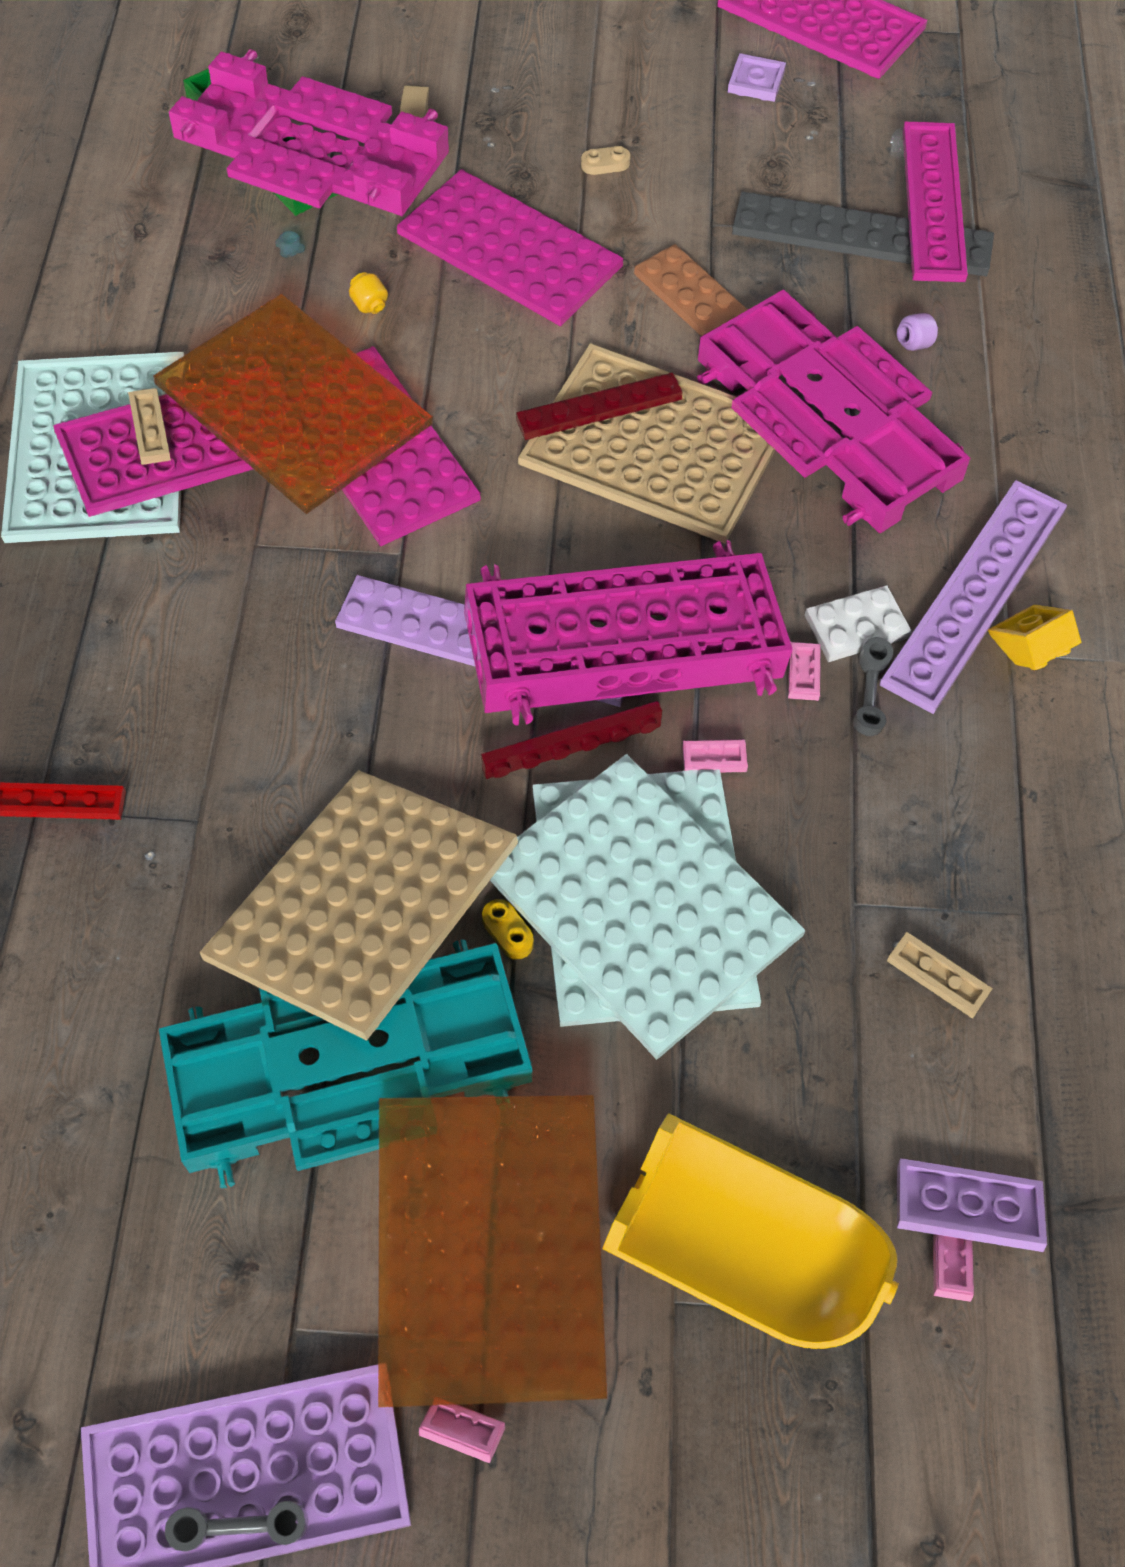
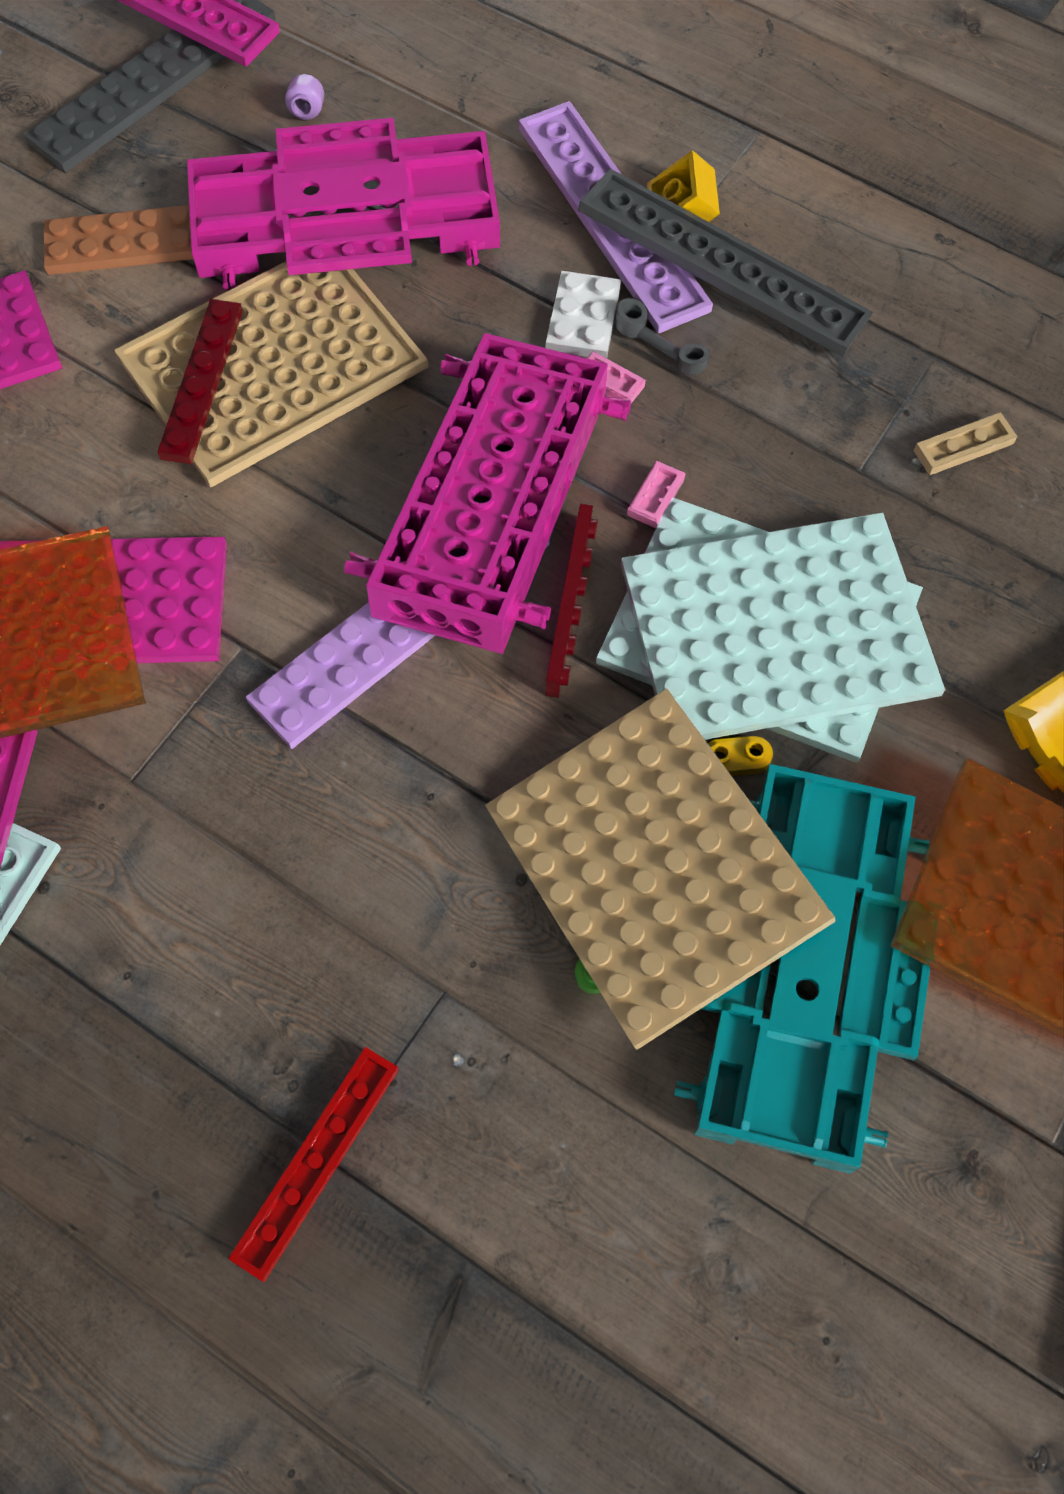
camera: 60 degrees left, 5 degrees up
(984, 700) = (725, 262): none -> dark grey plate

